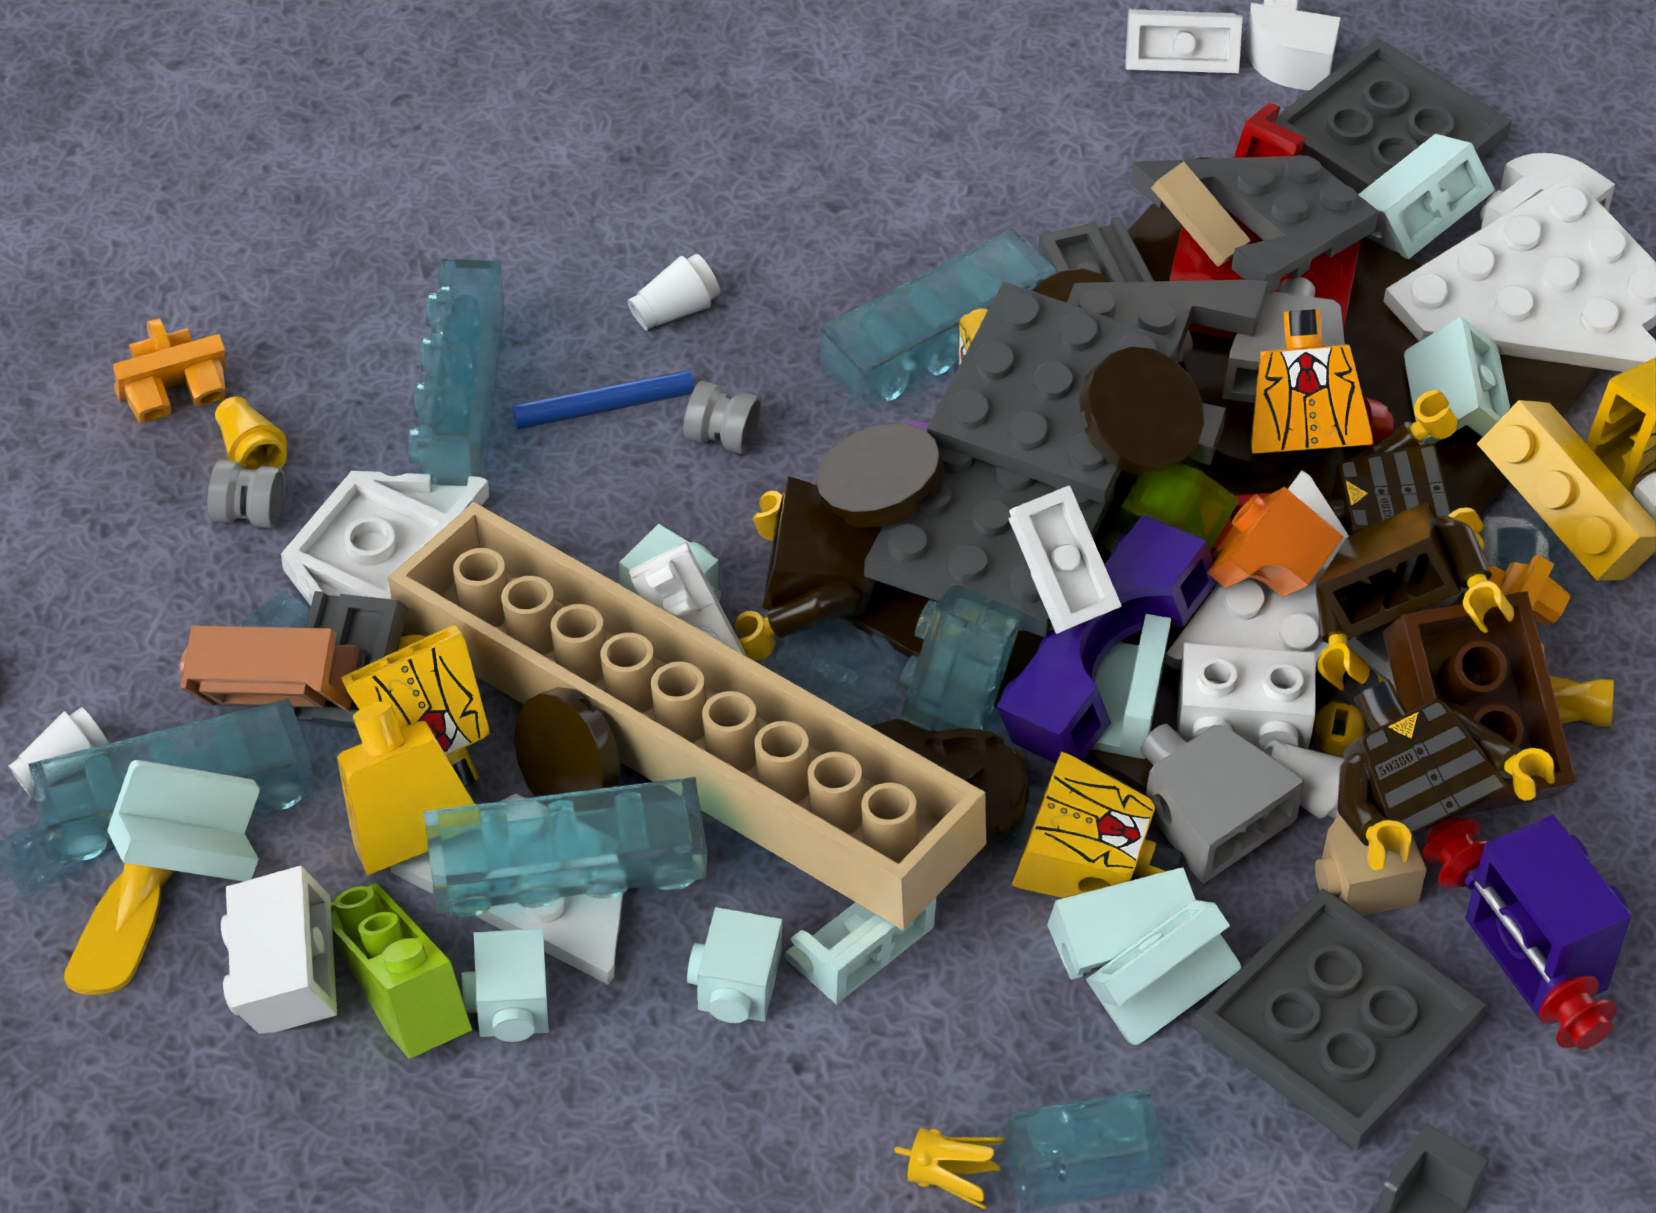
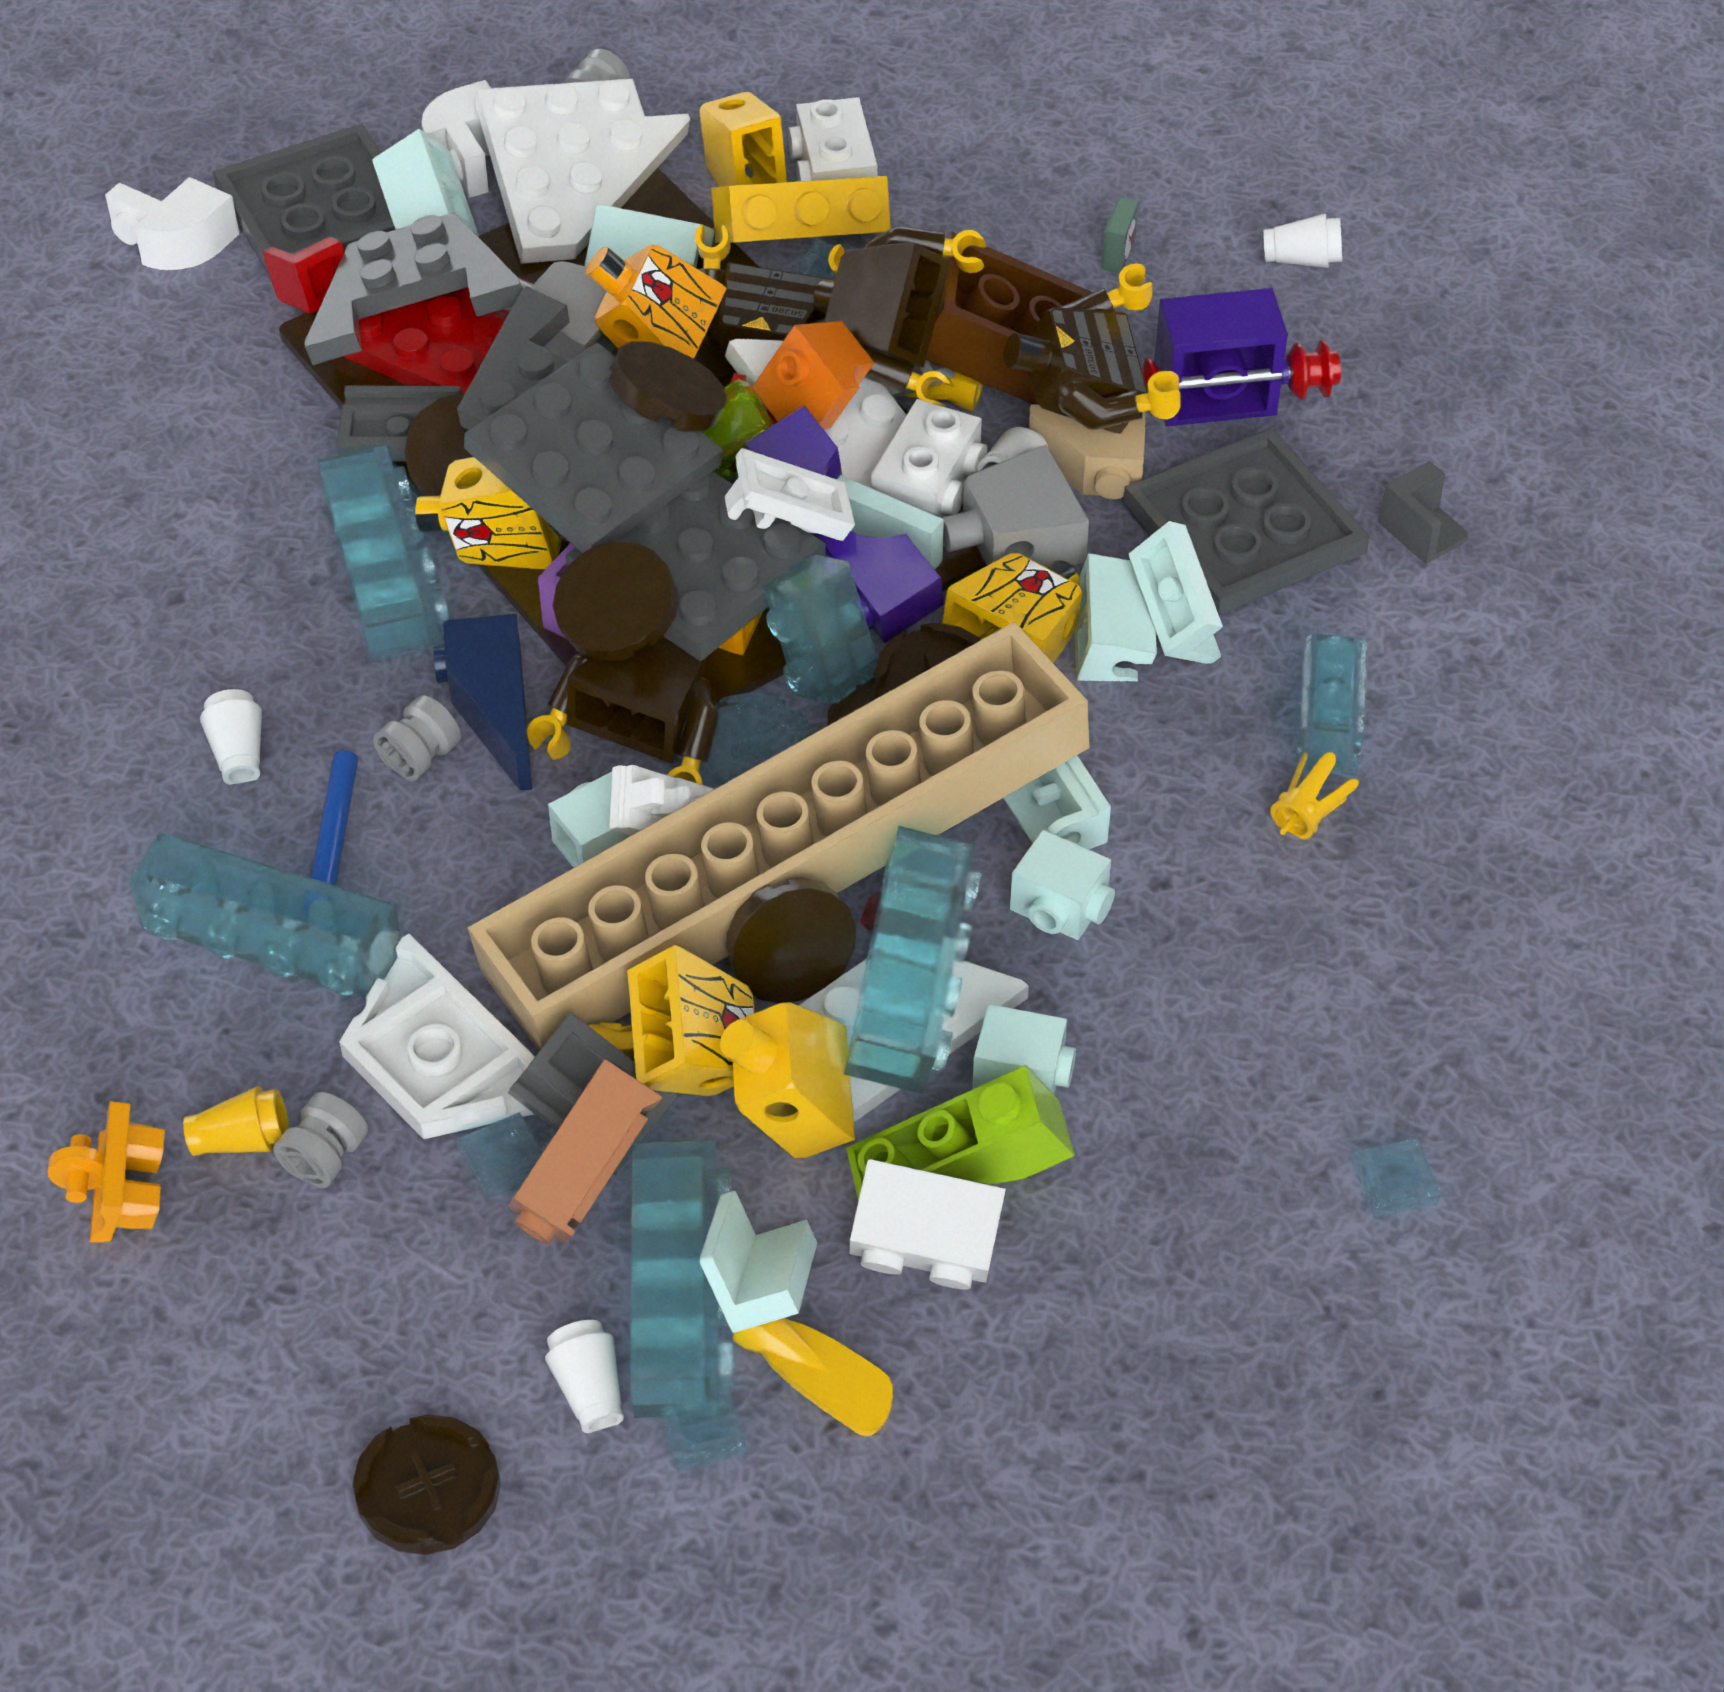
camera: 70 degrees left, 0 degrees up
(788, 448) = (487, 687): none -> dark blue slope
(1183, 41) = (134, 294): white plate -> none
(1200, 213) = (393, 321): tan piece -> none

